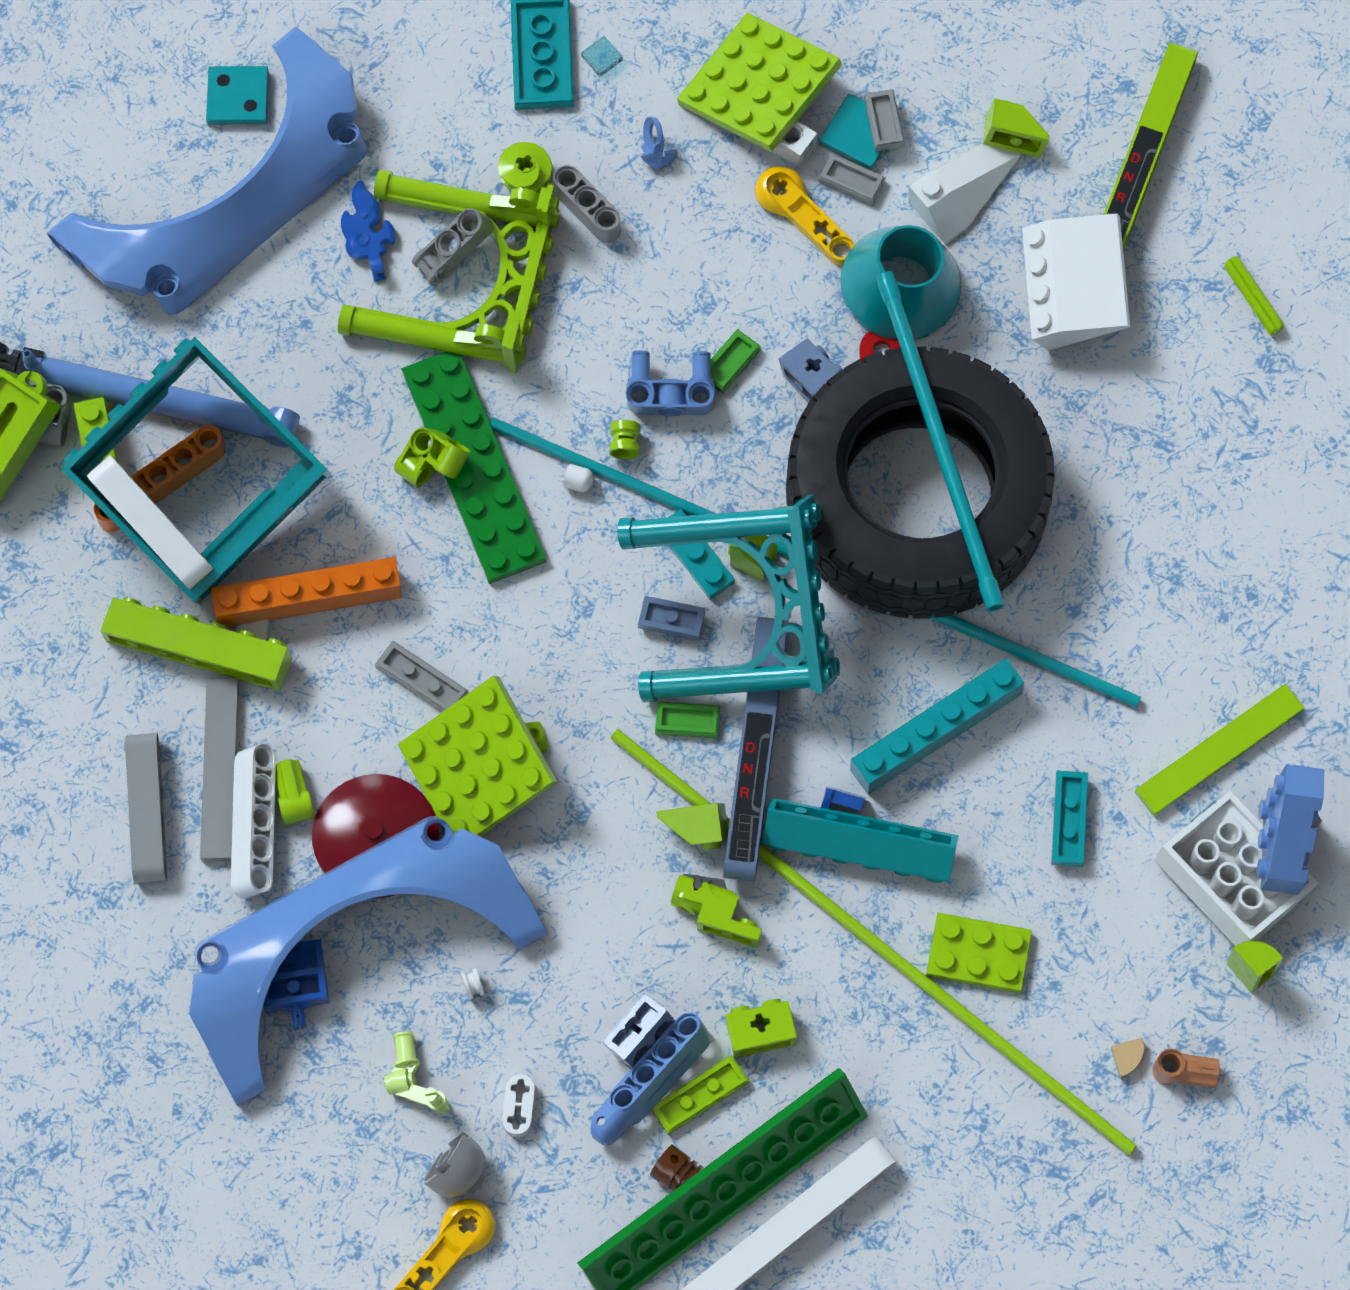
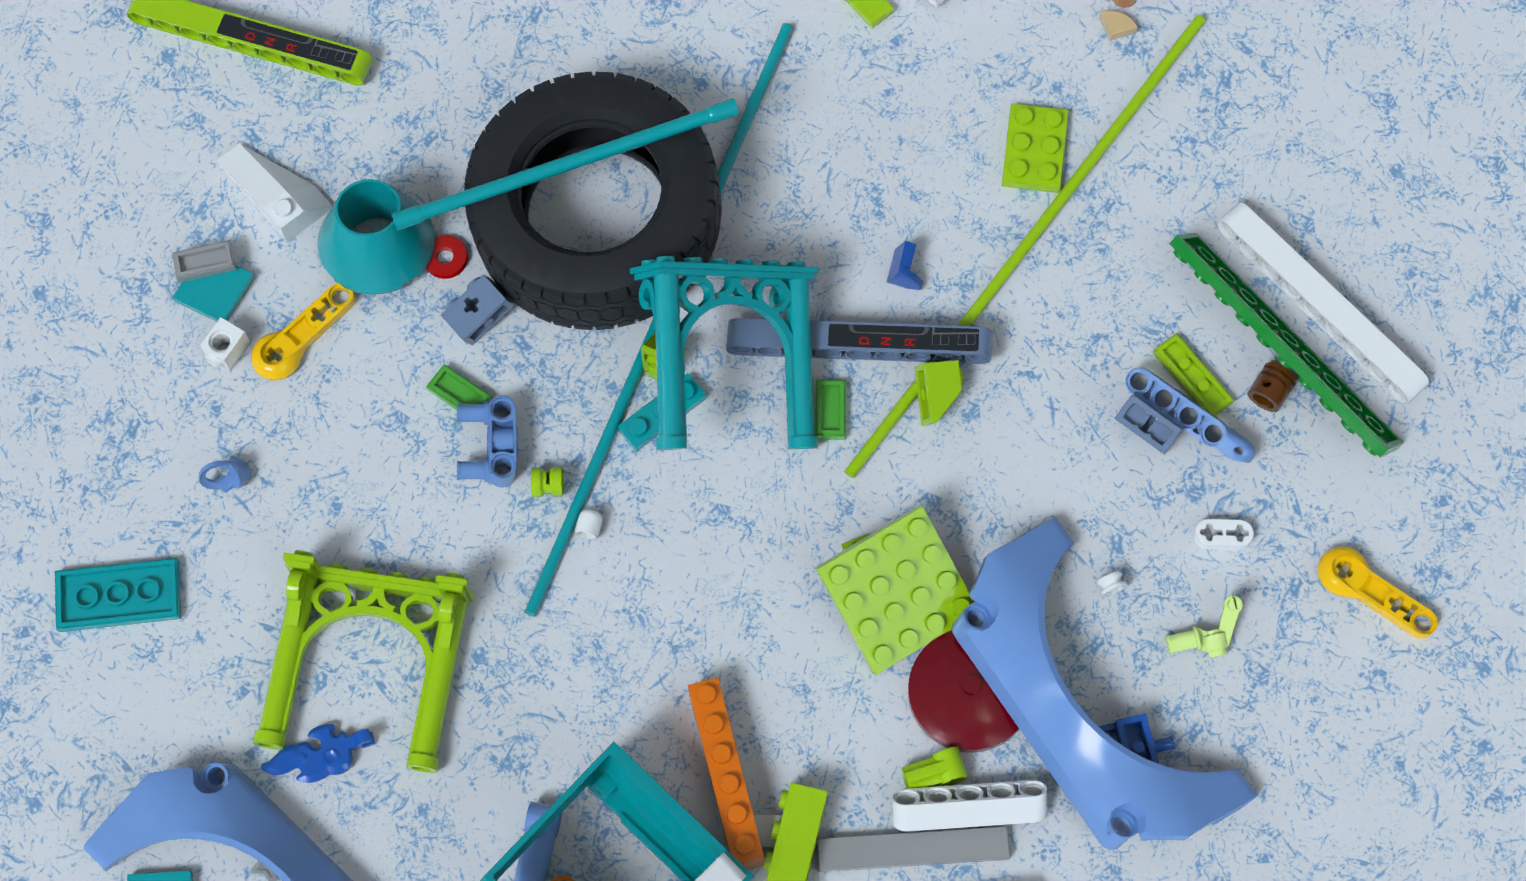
camera: 95 degrees left, 0 degrees up
(419, 461) = (576, 644): lime piece -> none
(419, 677) = (804, 659): light grey tile -> none
(436, 257) = (353, 672): light grey piece -> none
(457, 1168) = (1294, 582): light grey cylinder -> none
(484, 484) = (575, 628): green plate -> none
(525, 167) = (247, 585): lime piece -> none
(584, 191) = (295, 520): light grey beam -> none
(602, 56) = (123, 535): clear light blue tile -> none
(671, 618) = (730, 427): sand blue plate -> none
(715, 908) = (1016, 371): lime plate -> none
(747, 1039) = (1128, 307): lime brick -> none
(759, 82) = (160, 377): lime plate -> none
(852, 179) = (264, 292): light grey tile -> none
(860, 840) = (942, 243): teal brick -> none
(937, 726) = (826, 187): teal brick -> none
(1014, 129) = (215, 145): lime slope -> none
(1069, 818) = (904, 76): teal plate -> none
(1075, 279) = (377, 78): white slope -> none

